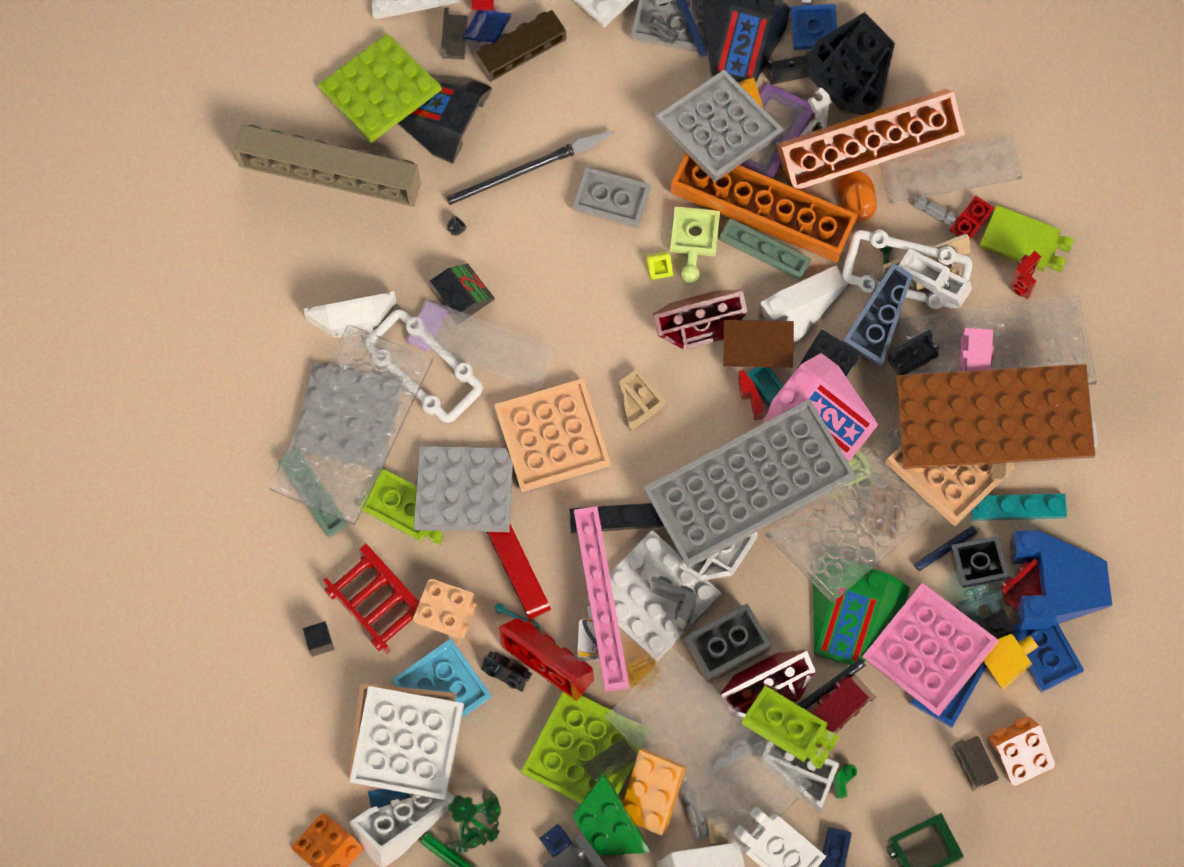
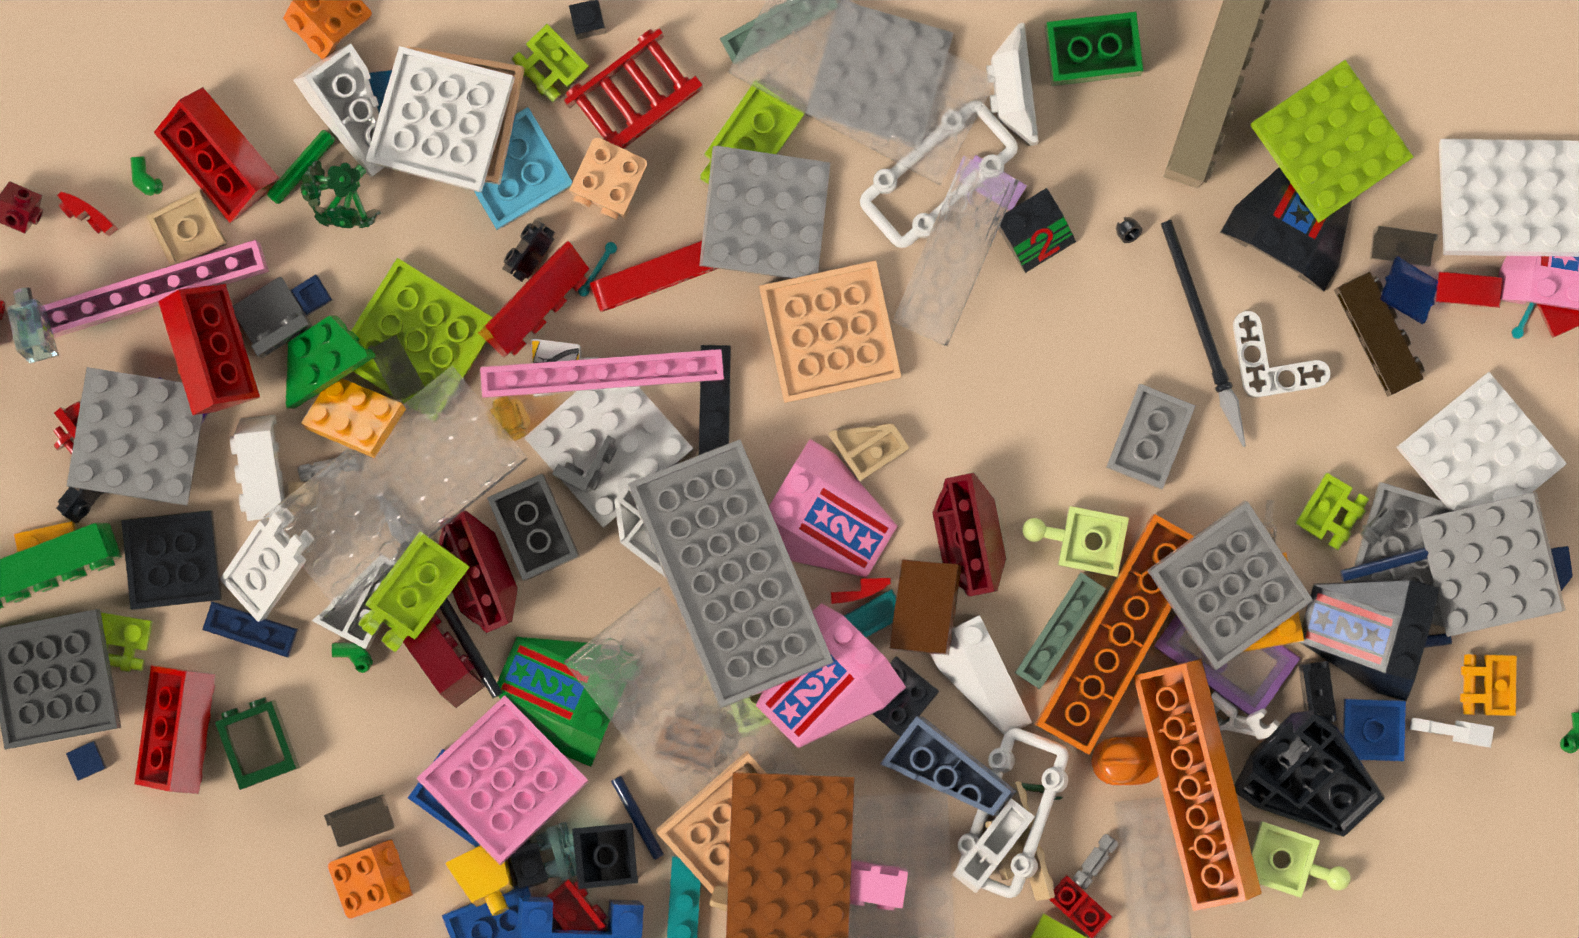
camera: 95 degrees right, 15 degrees up
(320, 258) = (1093, 48): none -> green brick
(350, 661) = (557, 56): none -> lime plate
(557, 120) = (1270, 375): none -> white beam
(652, 73) = (1323, 507): none -> lime plate
(659, 265) = (1052, 491): neon yellow slope -> none
(693, 421) = (829, 515): none -> bright pink wedge
(911, 68) = (1301, 856): none -> yellowish green plate
(913, 353) = (891, 806): black hinge -> none

